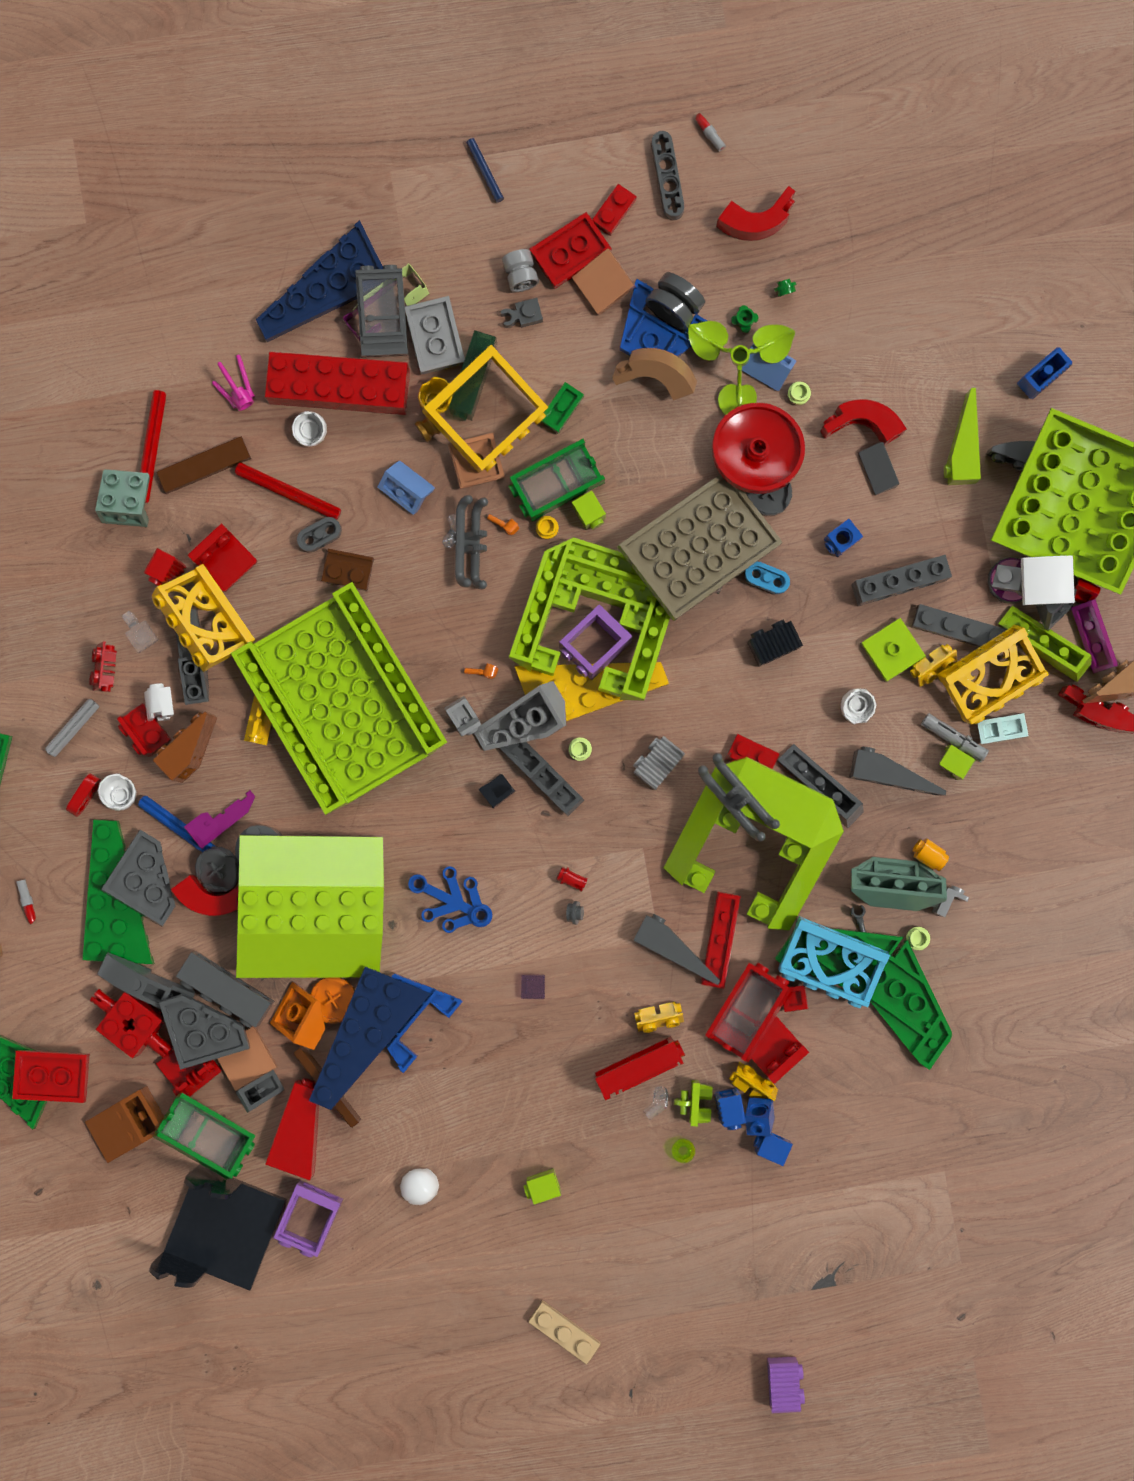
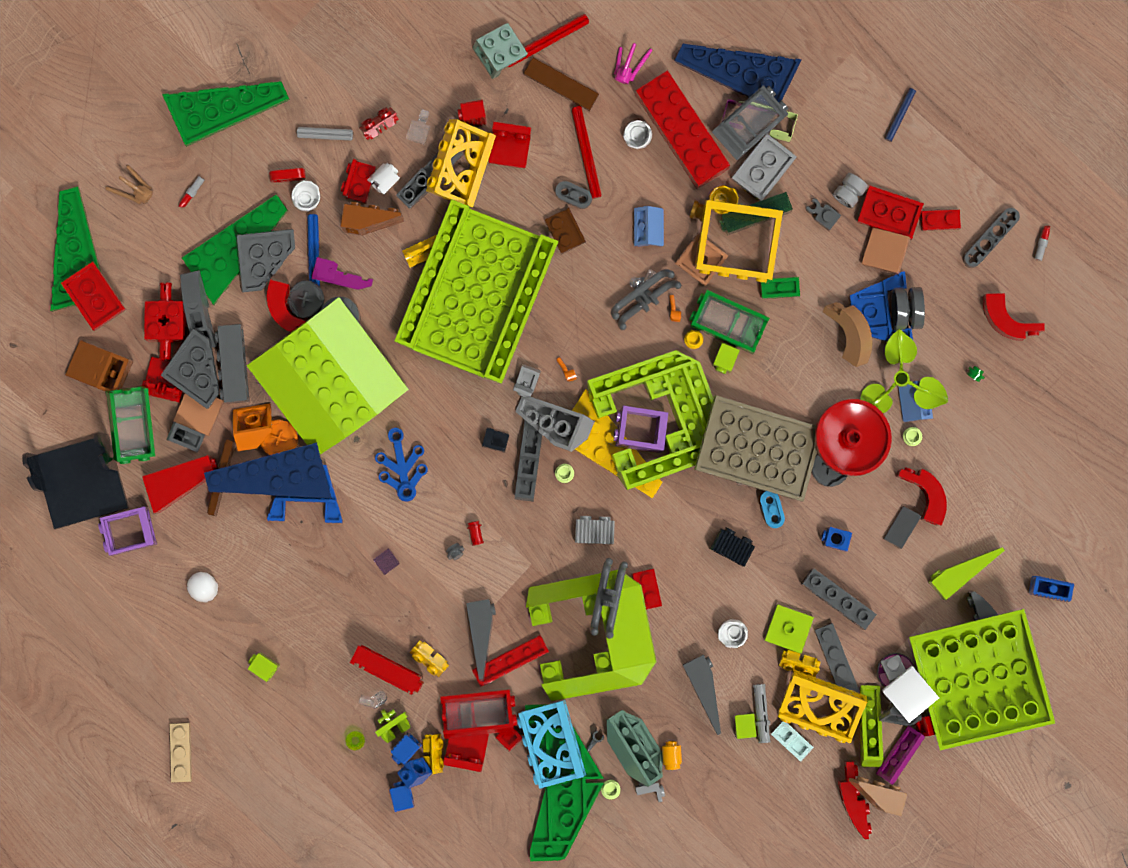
camera: 50 degrees right, 0 degrees up
(743, 312) = (939, 362): green plate -> none
(816, 778) = (663, 646): dark grey slope -> none

